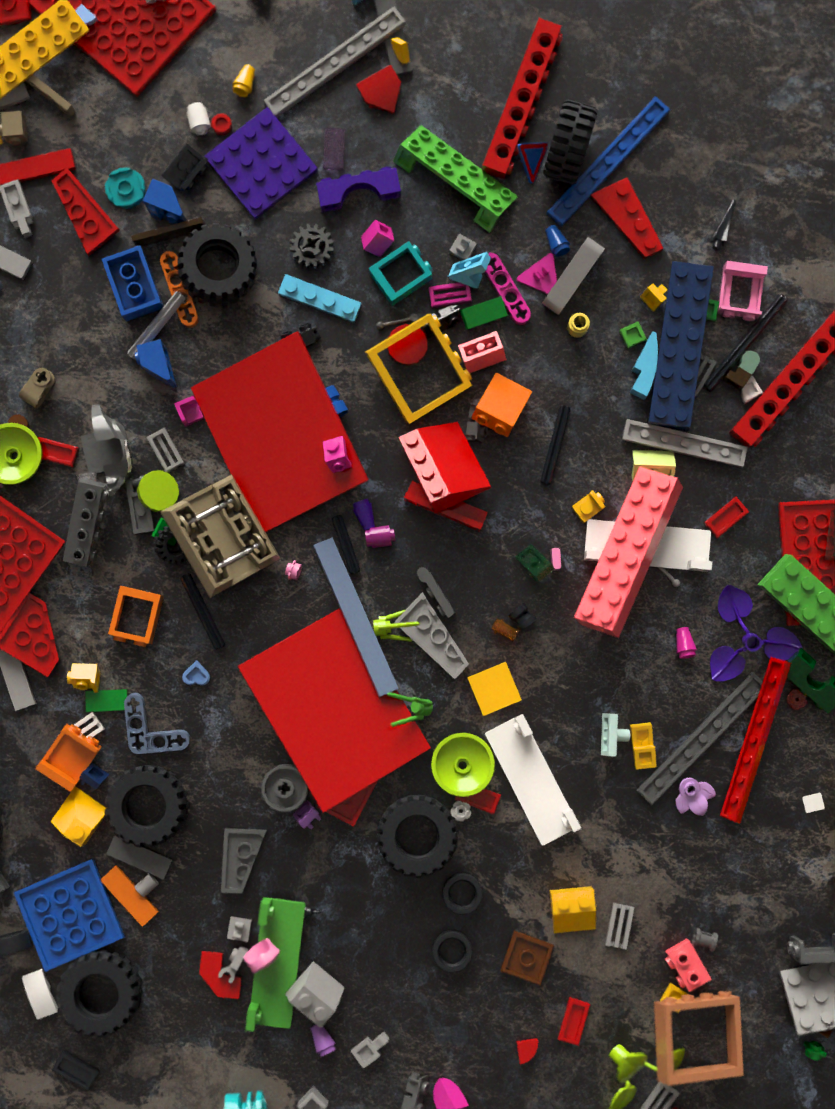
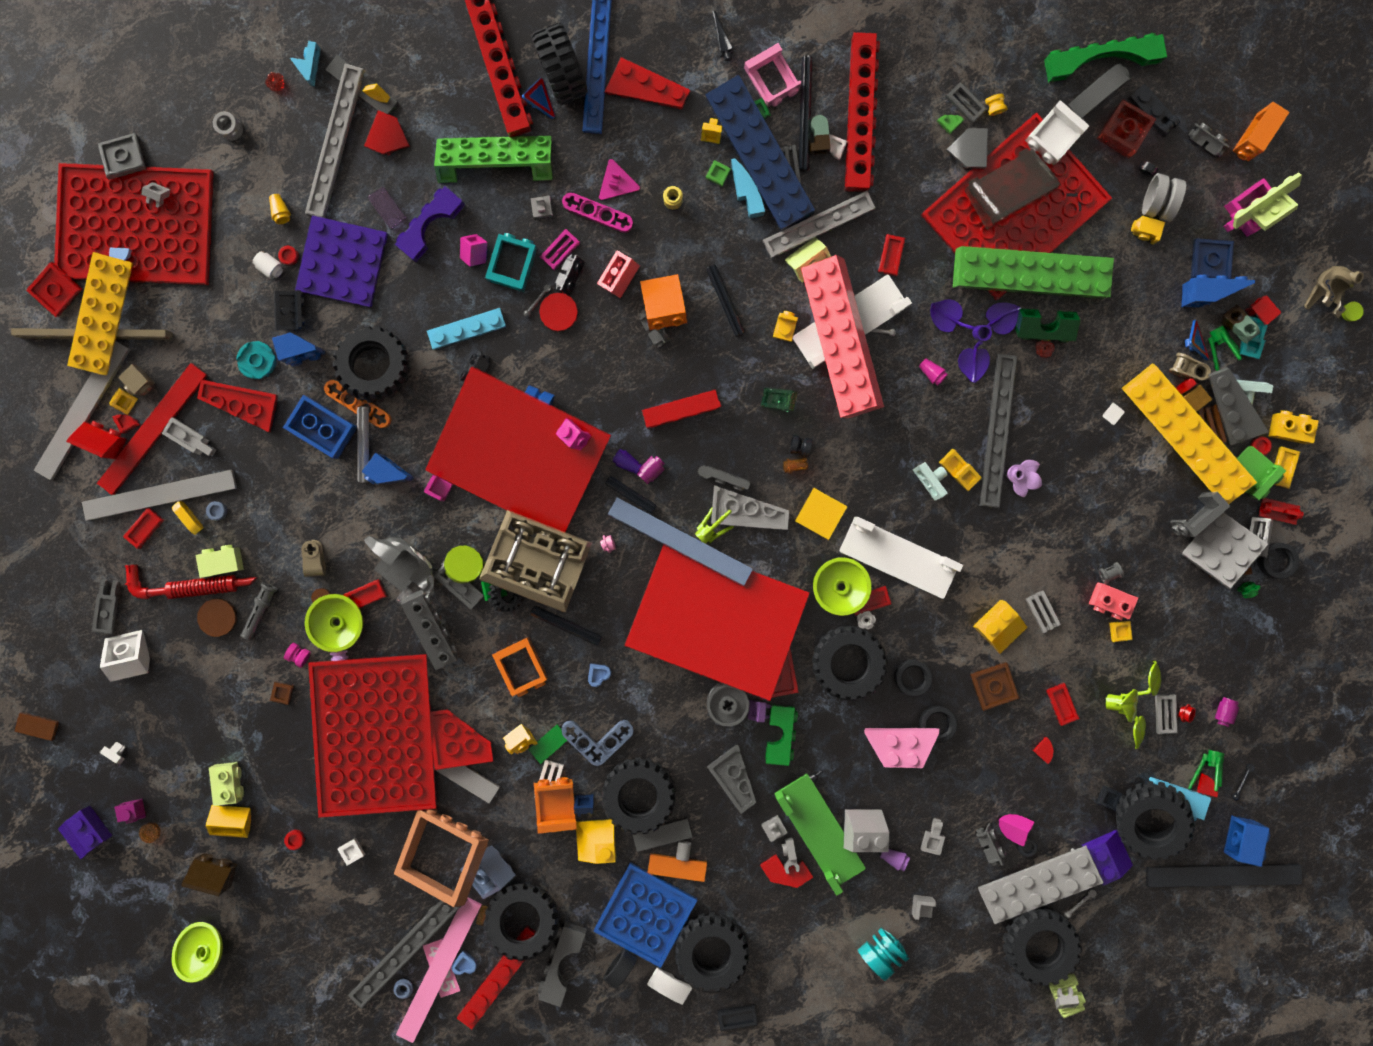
camera: 40 degrees left, 5 degrees up
(167, 232) = (315, 368): dark brown piece -> none
(173, 465) = (459, 536): light grey tile -> none
(261, 955) = (806, 835): bright pink hair -> none
(297, 865) = (780, 751): none -> green arch
(305, 250) = (430, 287): dark grey gear -> none
(392, 389) = (567, 351): yellow window -> none
(406, 945) = (902, 745): none -> bright pink wing
(419, 706) = (778, 570): bright green plant -> none
(444, 464) = (657, 380): slope -> none
(470, 270) = (561, 219): medium azure slope -> none
(483, 312) = (596, 243): green slope -> none
(555, 558) = (791, 383): bright pink tile -> none
(558, 243) = (608, 147): blue cone -> none
(573, 275) = (640, 163): light grey beam -> none
(664, 1048) = (1140, 669): nougat window -> none
(755, 739) = (1038, 401): red tile -> none

